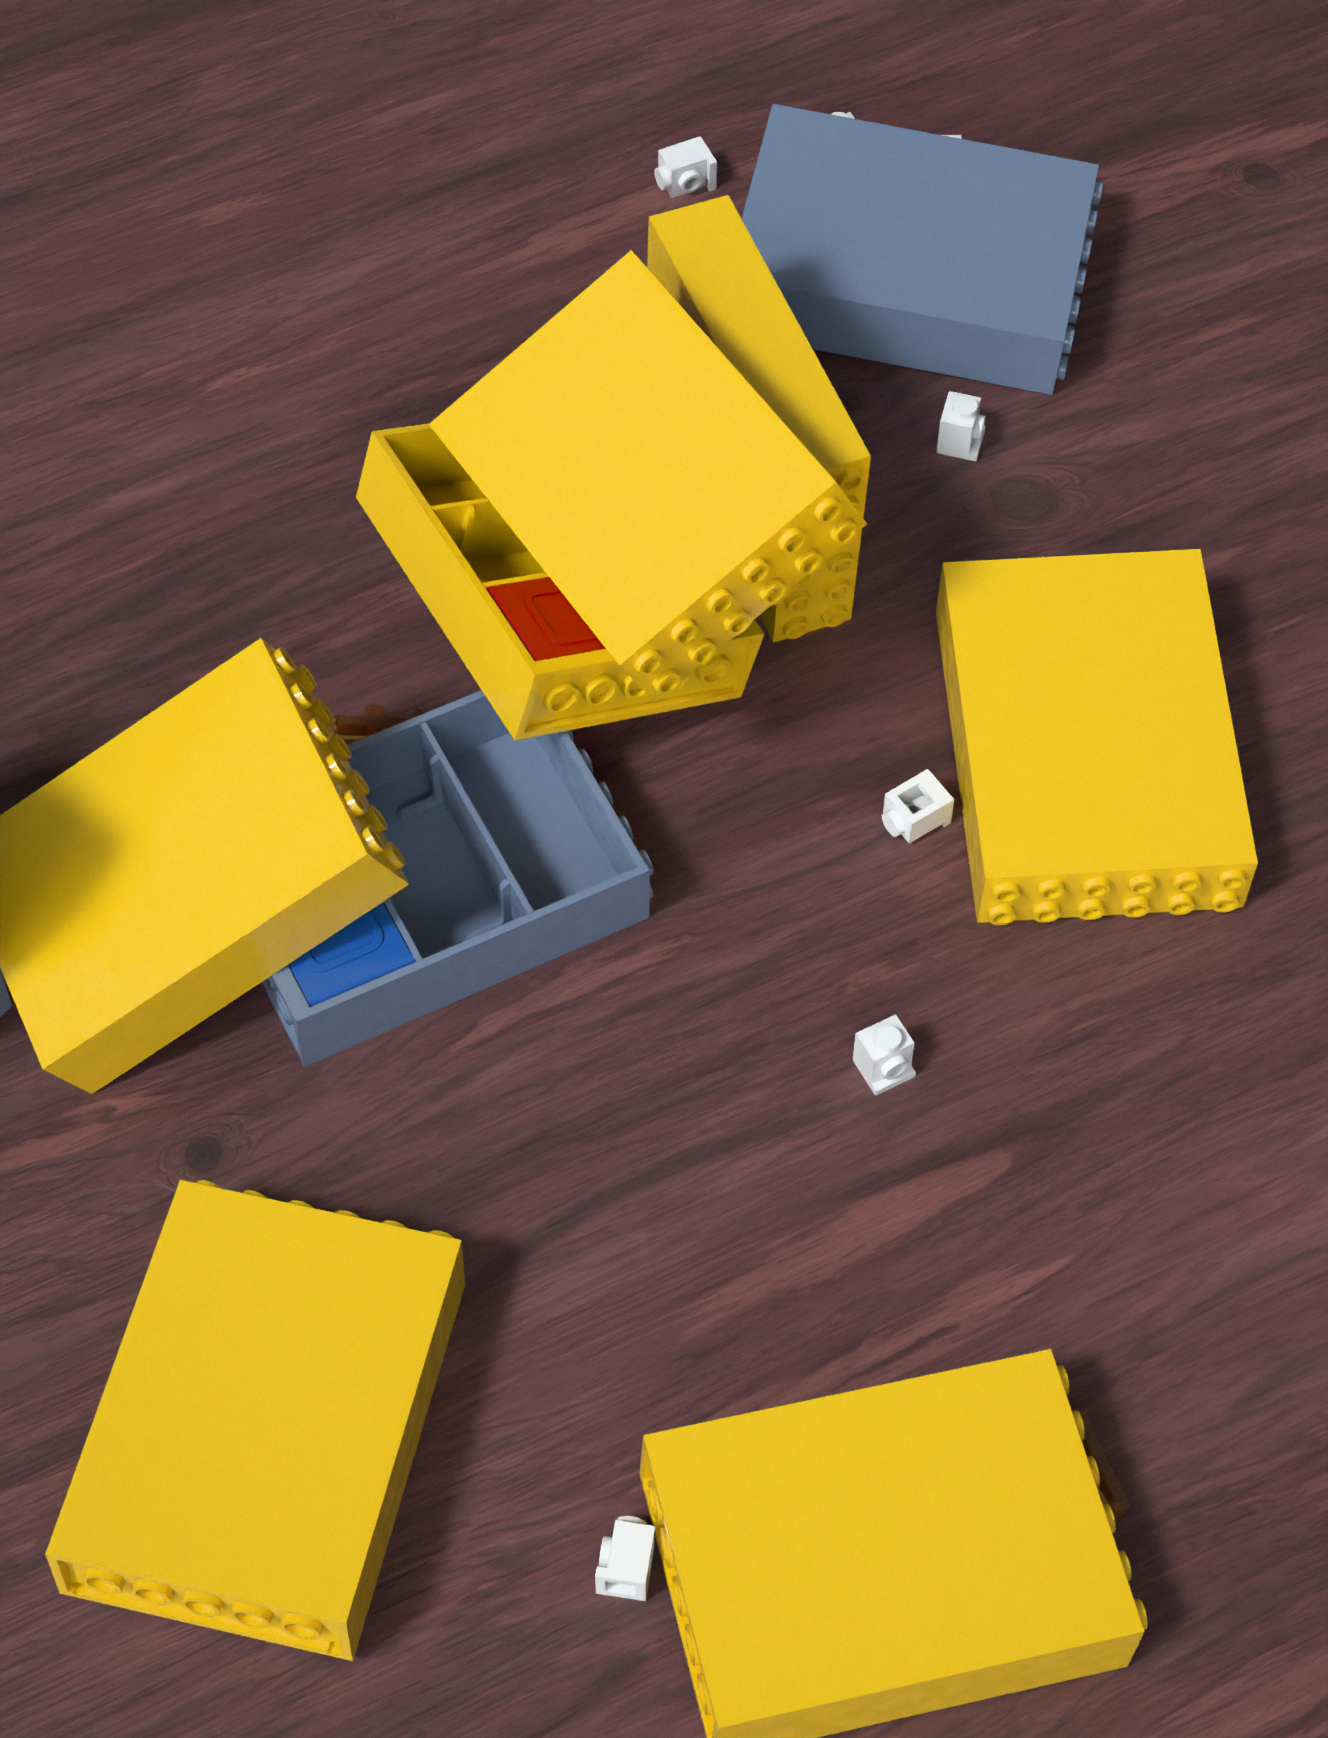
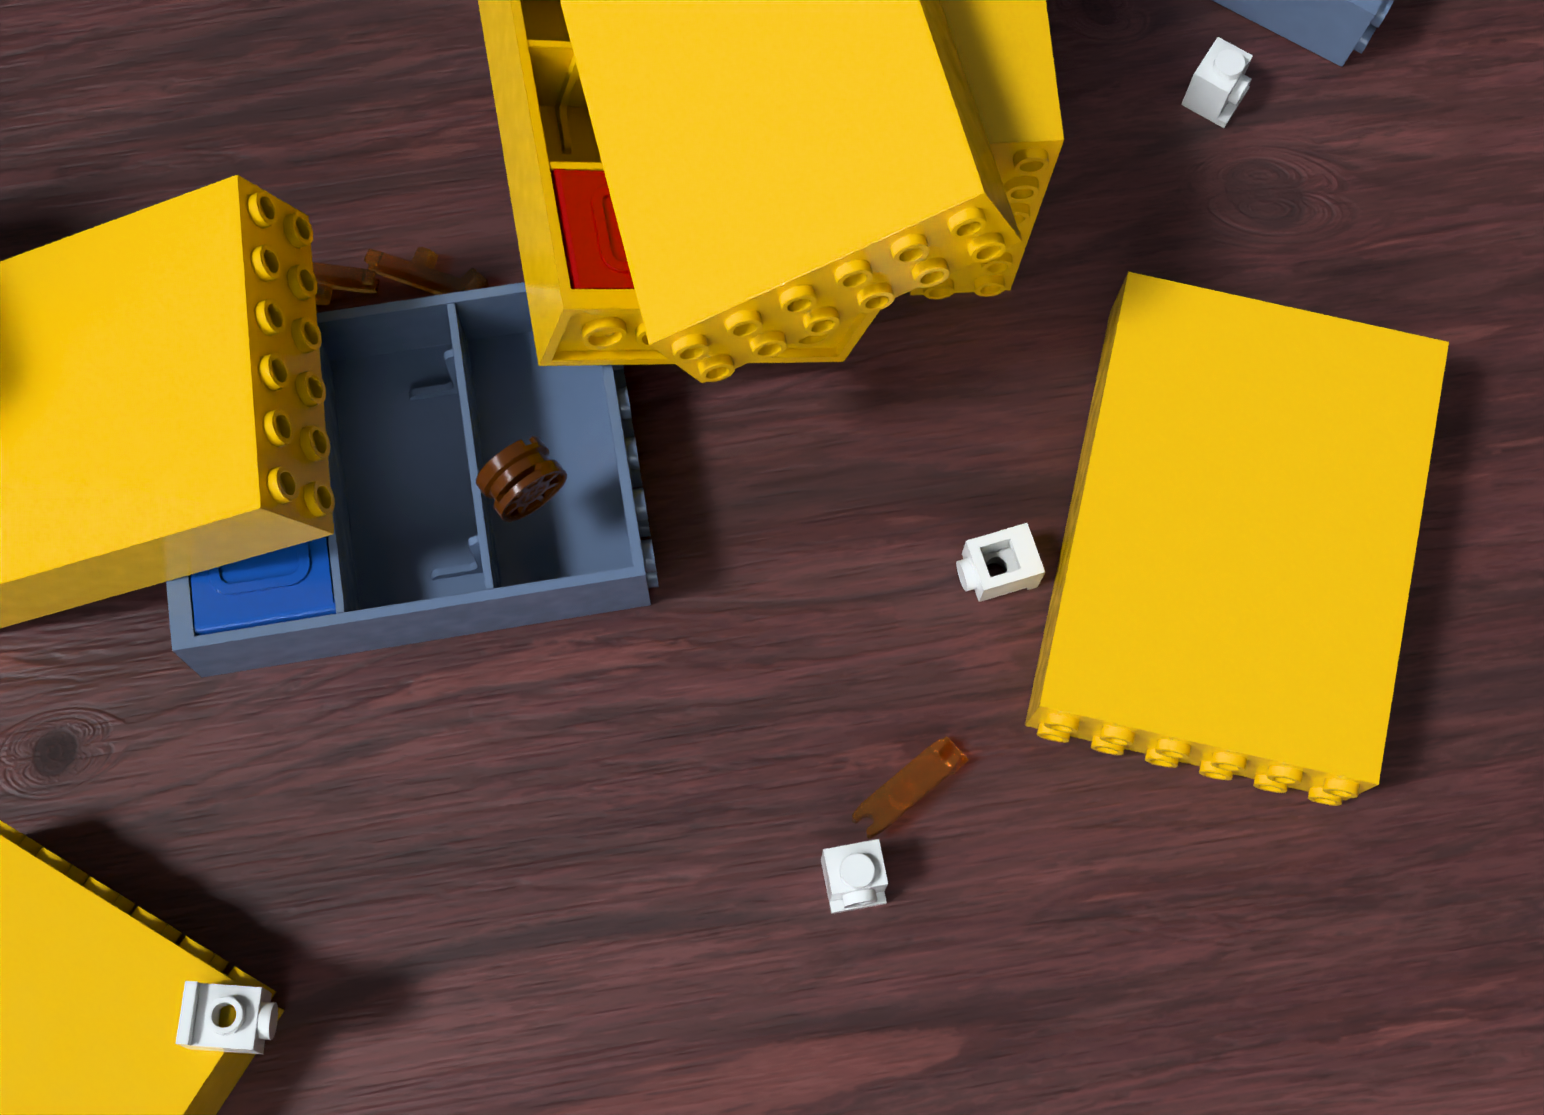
camera: 15 degrees right, 15 degrees up
(446, 1251) = (201, 1011): none -> white brick
(532, 819) = (521, 479): none -> reddish brown wheel
(904, 981) = (910, 785): none -> clear orange piece

